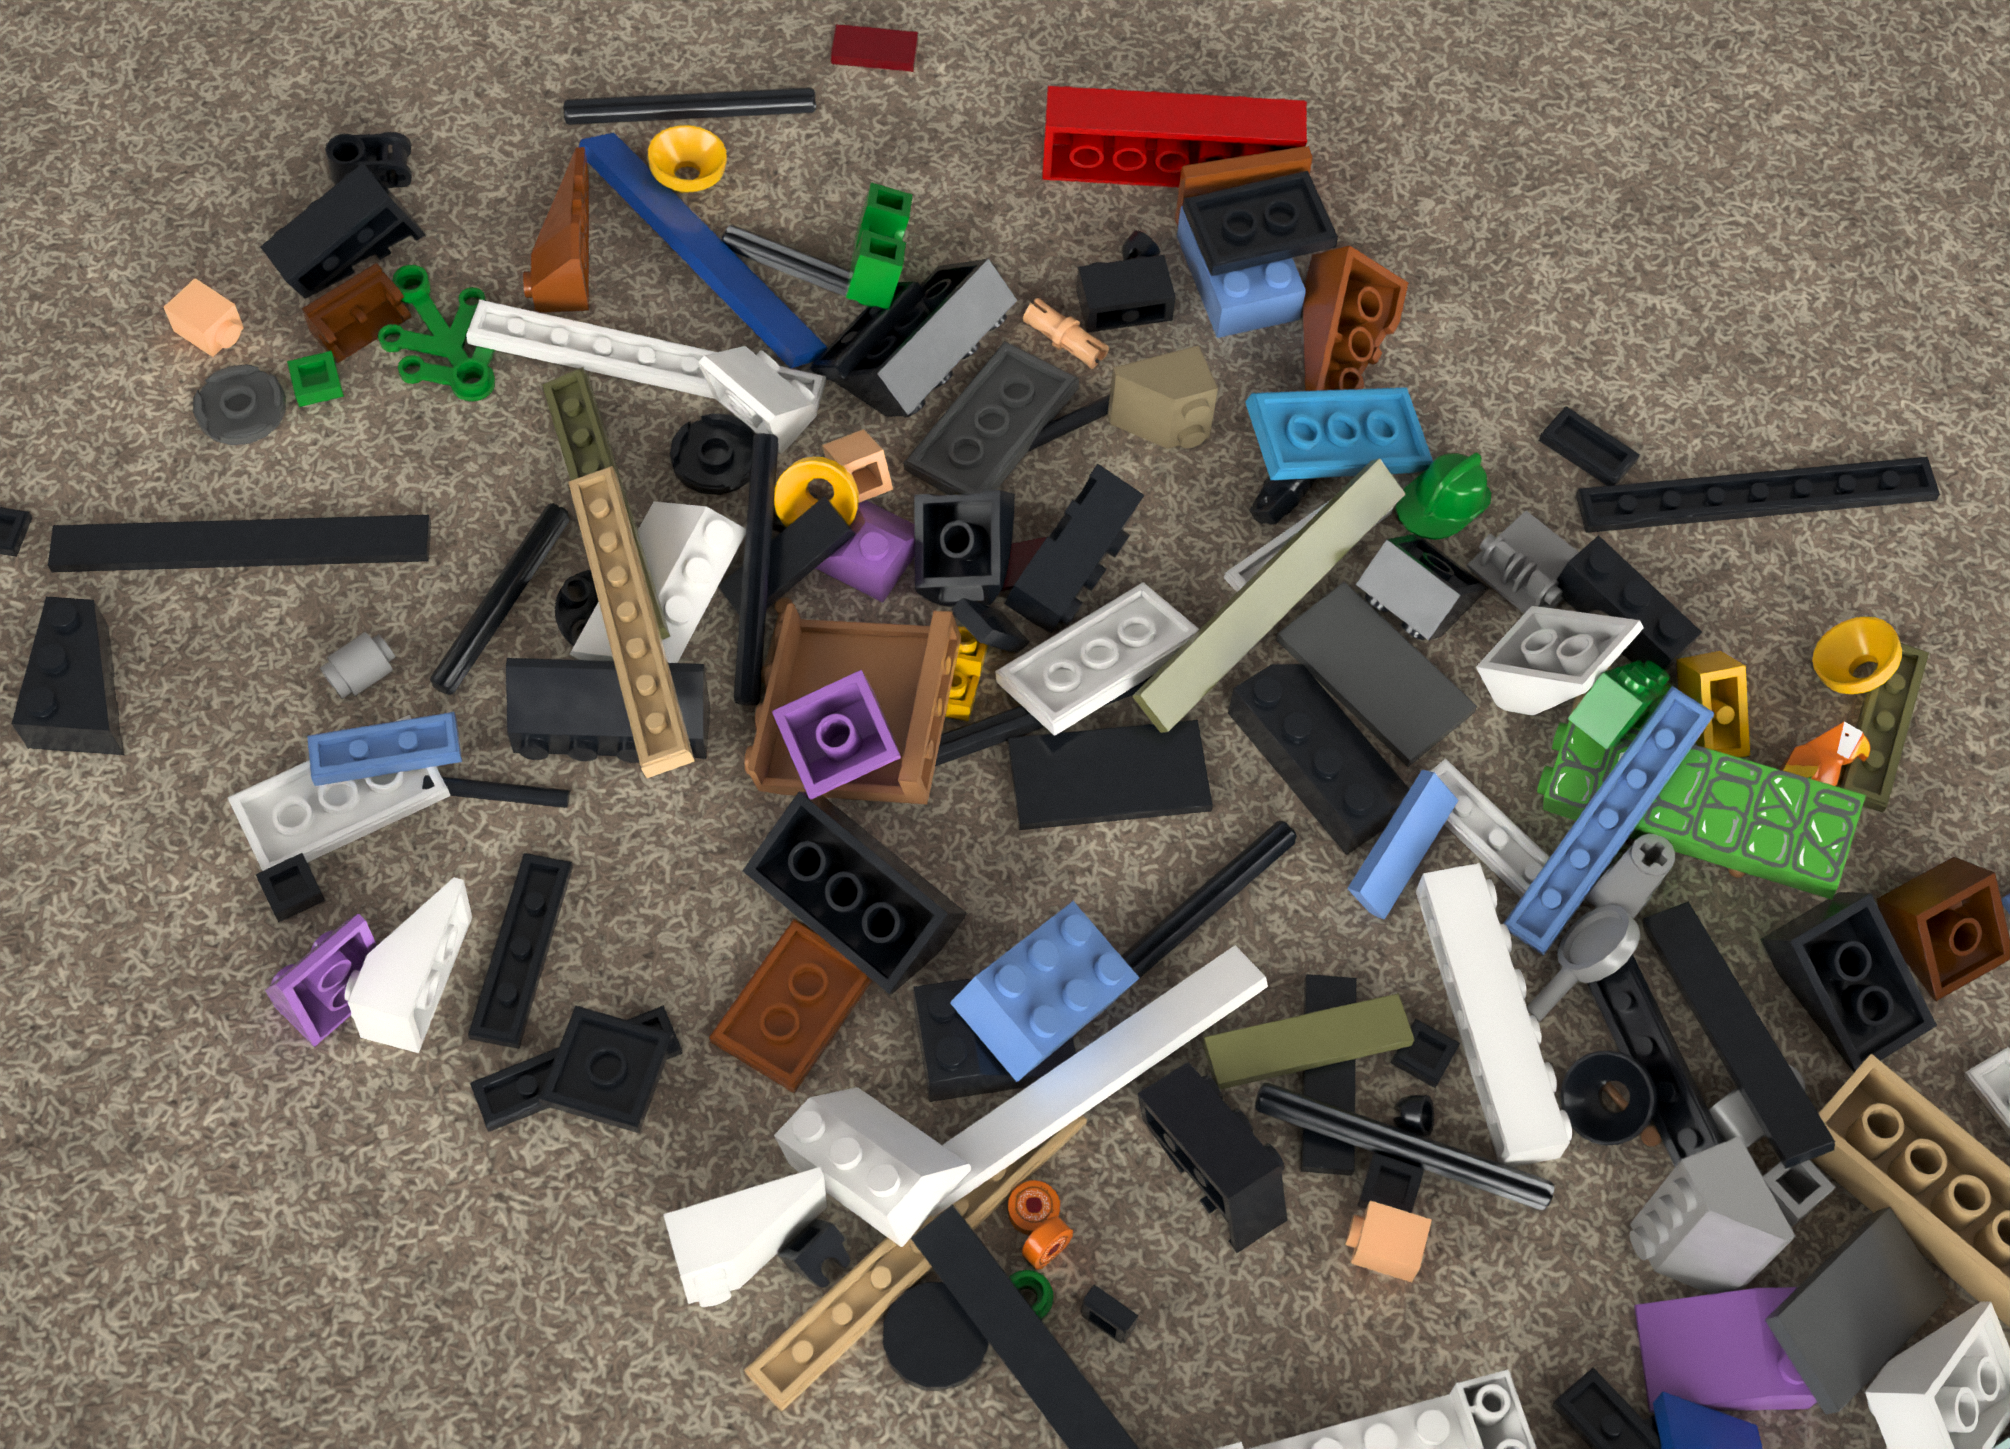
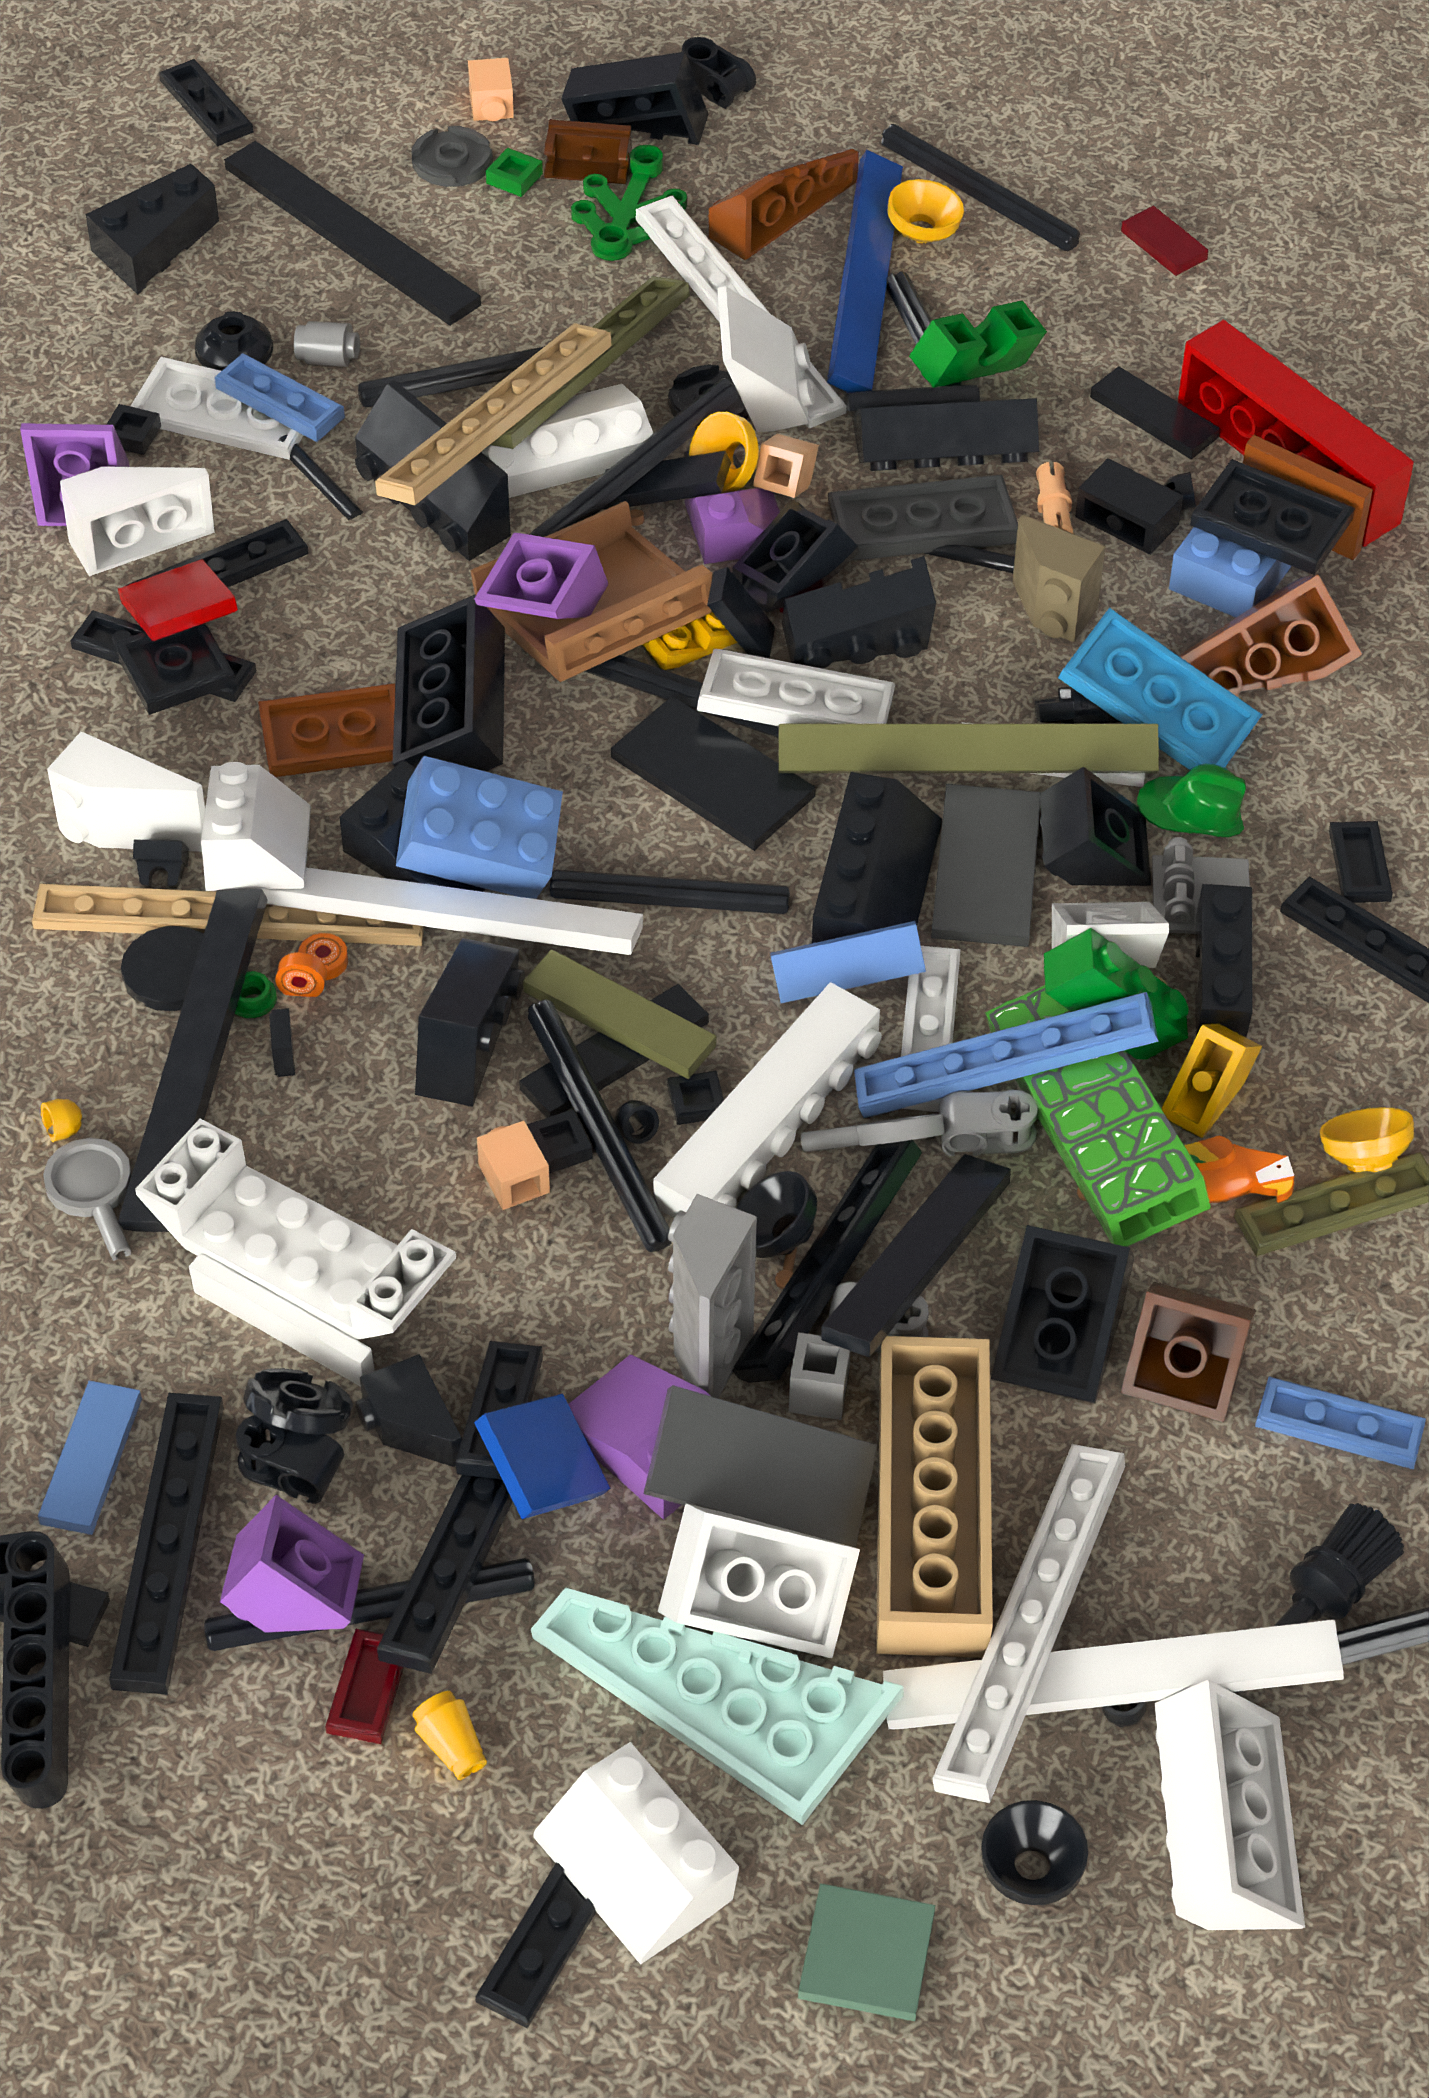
camera: 50 degrees right, 10 degrees down
(279, 748) = (219, 350): none -> black piece
(546, 1011) = (177, 600): none -> red tile
(1040, 199) = (1155, 412): none -> black tile

